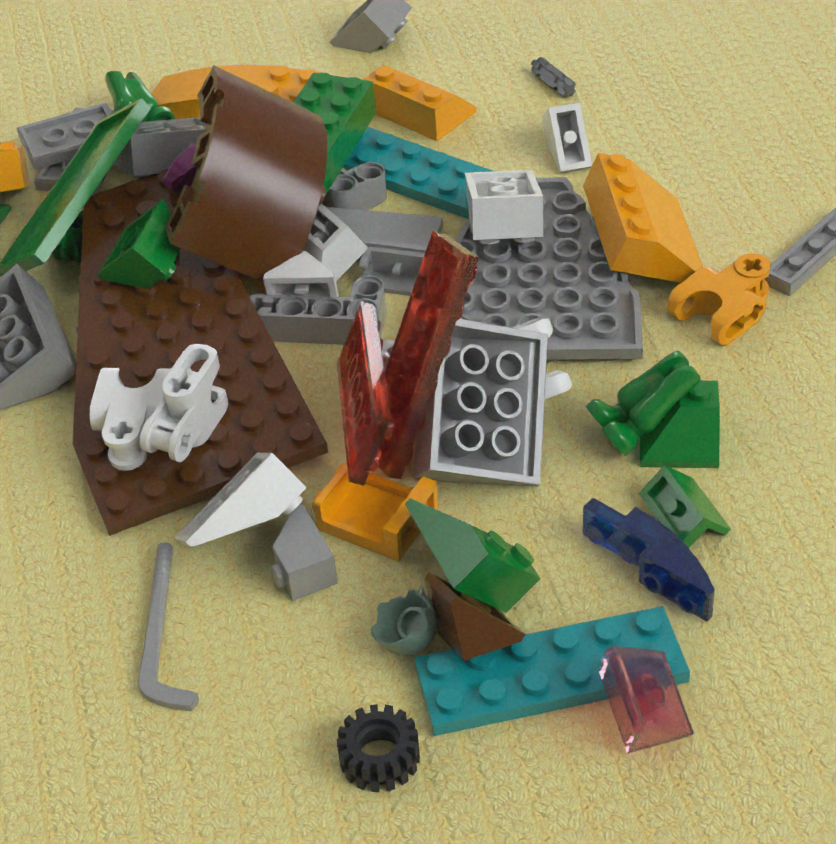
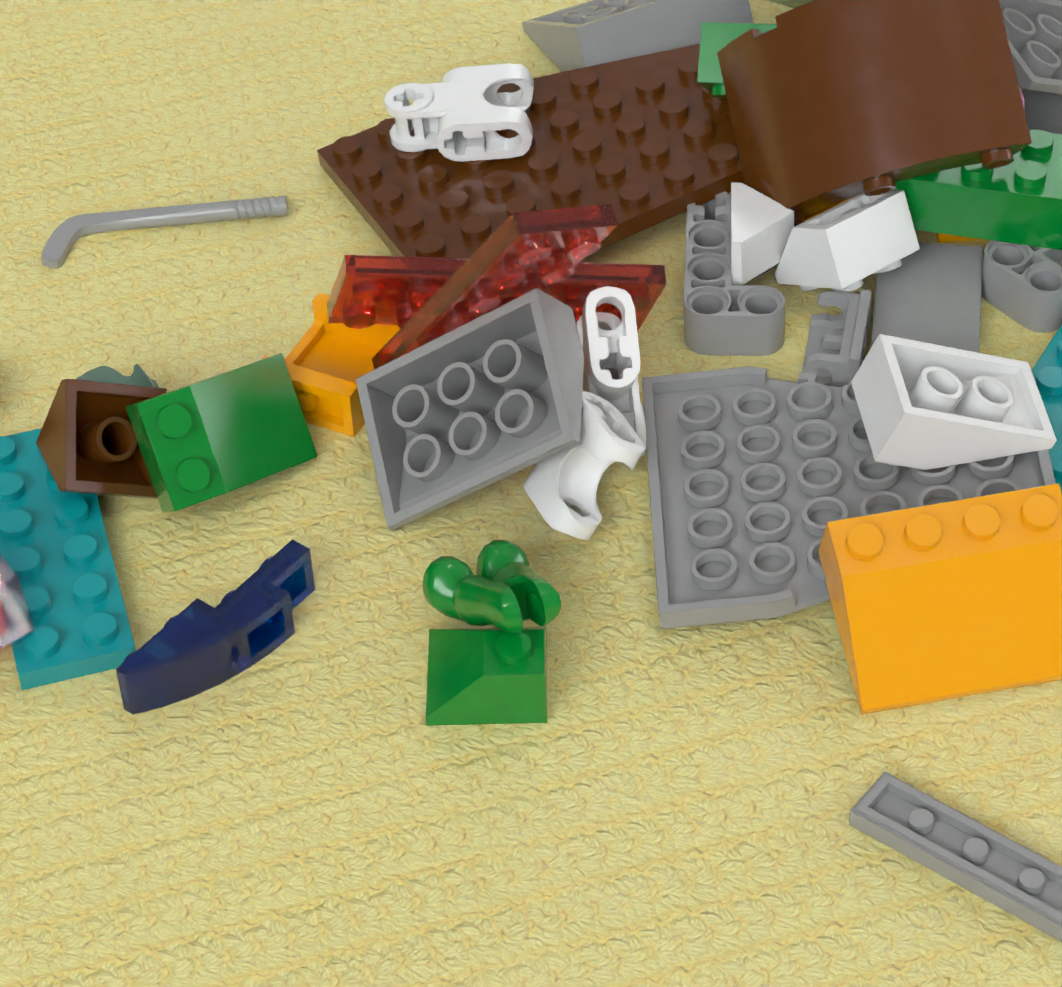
camera: 85 degrees right, 0 degrees up
(186, 412) = (440, 138): white piece -> none
(251, 497) = (313, 230): white slope -> none
(302, 557) = (254, 307): light grey slope -> none
(681, 505) = (326, 676): green panel -> none
(731, 296) = (809, 721): light orange piece -> none

